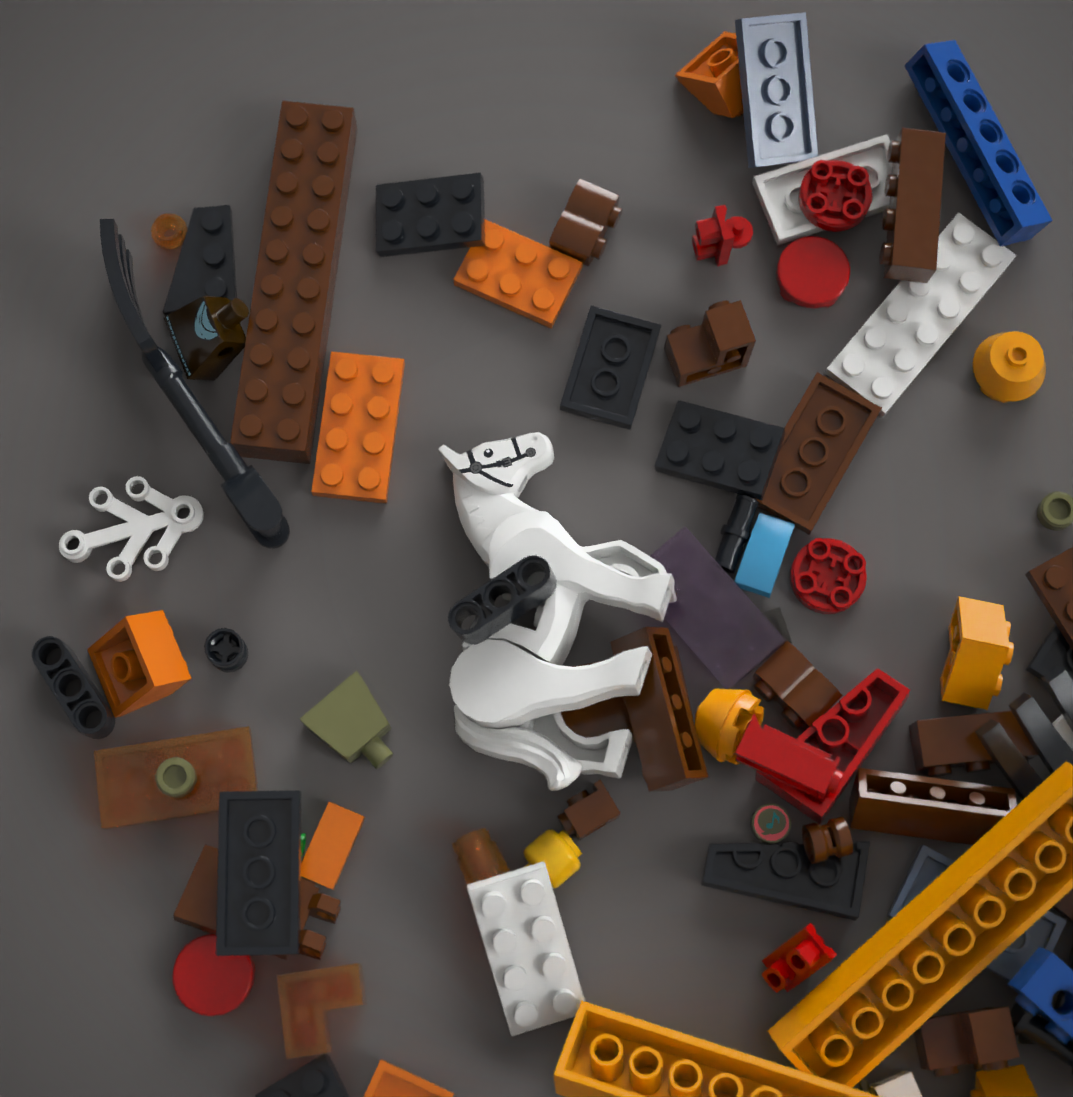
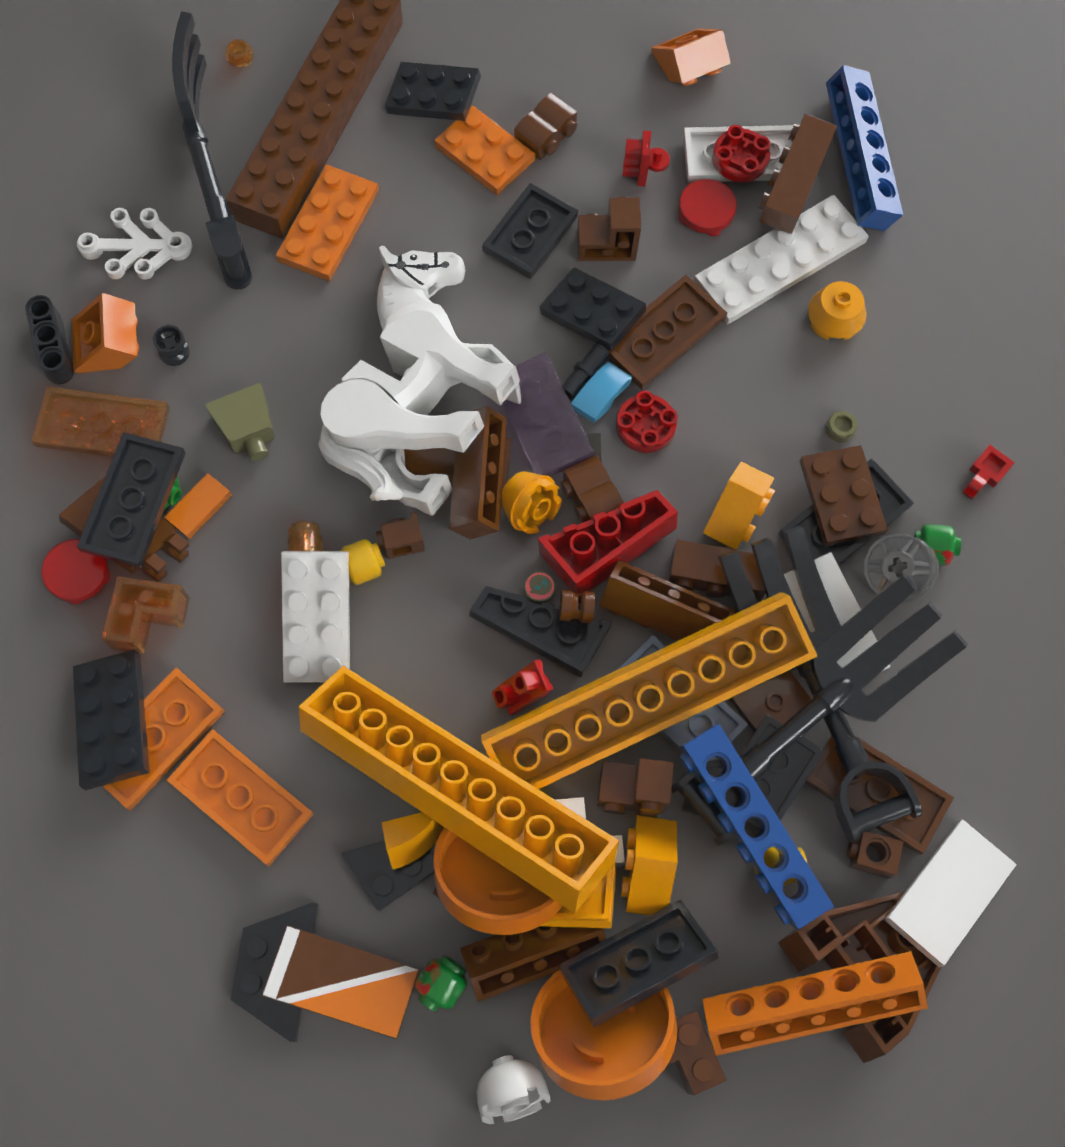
camera: 15 degrees right, 5 degrees down
(176, 777) = (99, 420): olive tile -> none
(205, 259) = (256, 85): black wing -> none
(207, 335) = (238, 125): dark brown torso -> none
(482, 600) = (381, 349): black beam -> none
(776, 89) = (719, 66): plate -> none
(789, 760) = (563, 532): red window -> none

